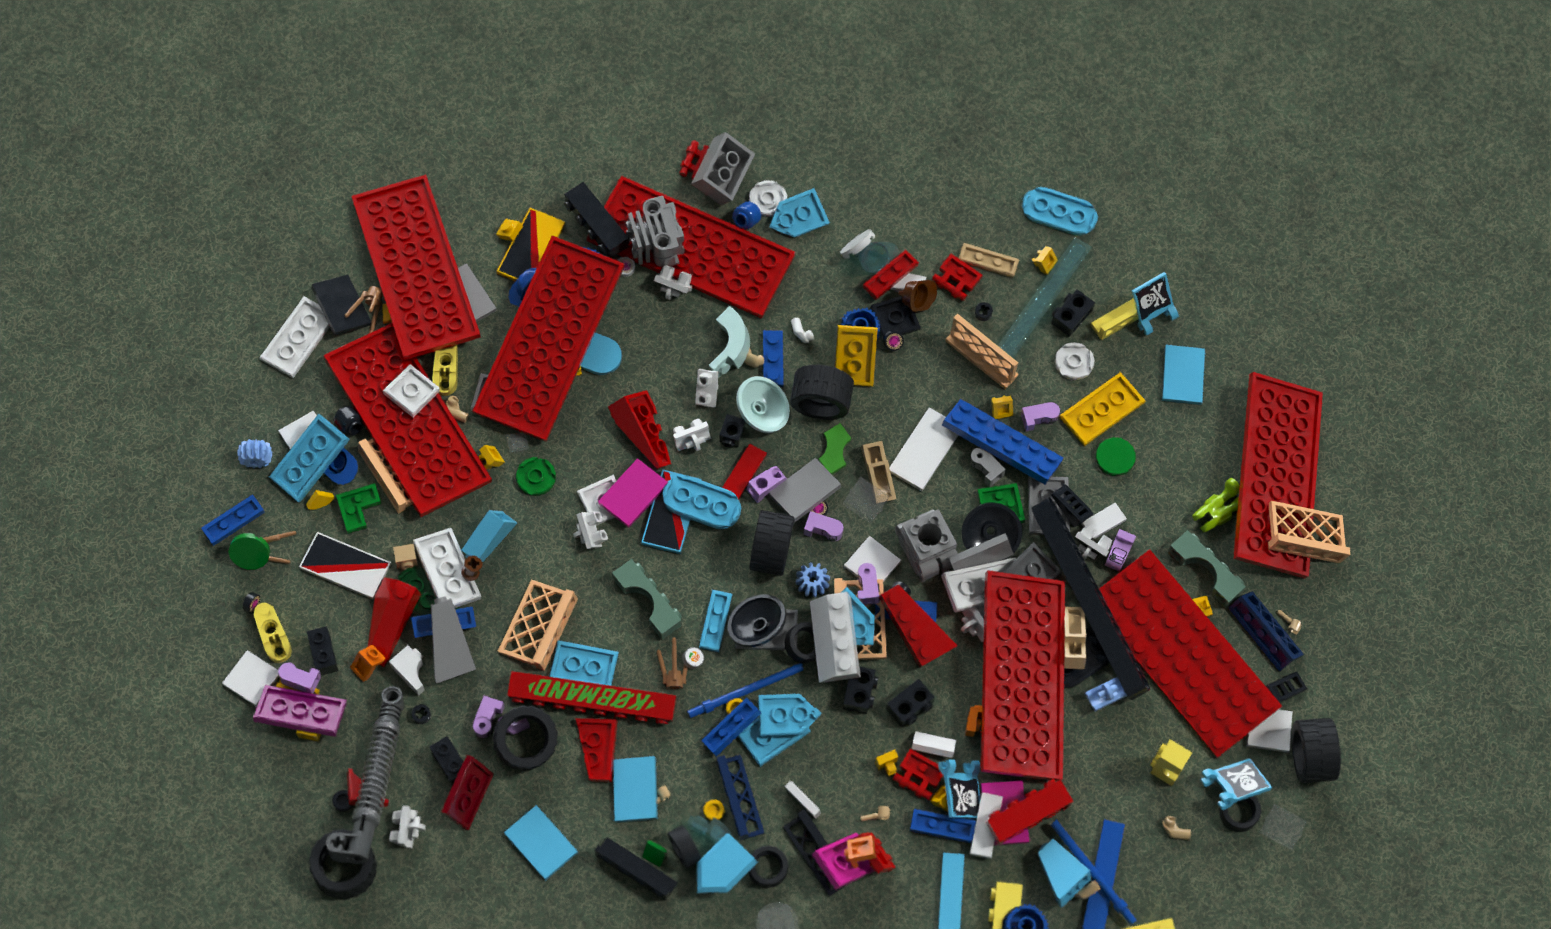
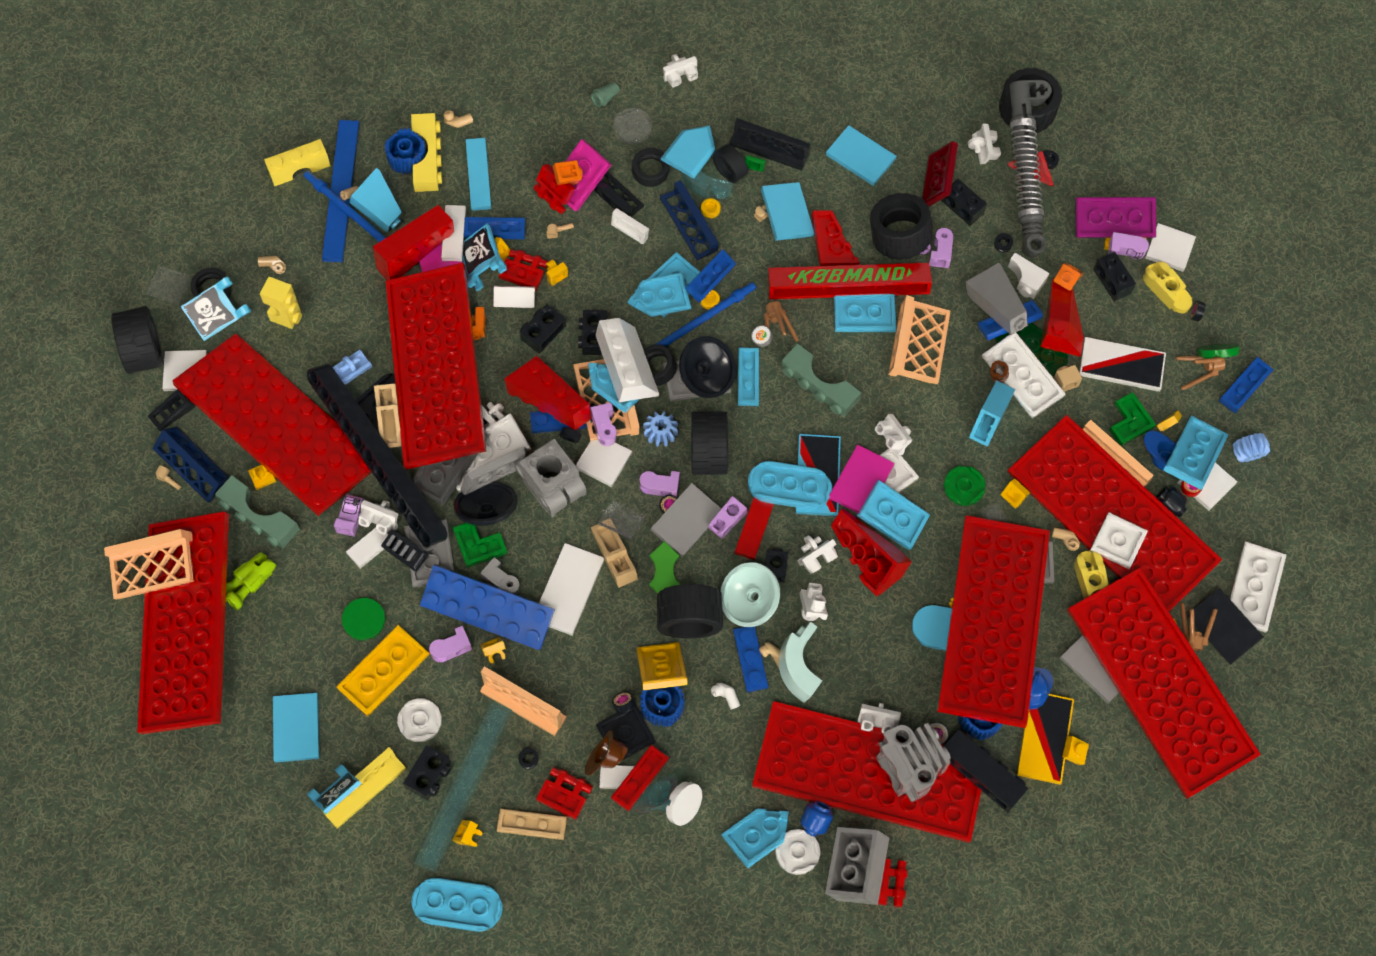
camera: 170 degrees right, 0 degrees up
(612, 455) = (893, 515): none -> medium azure tile

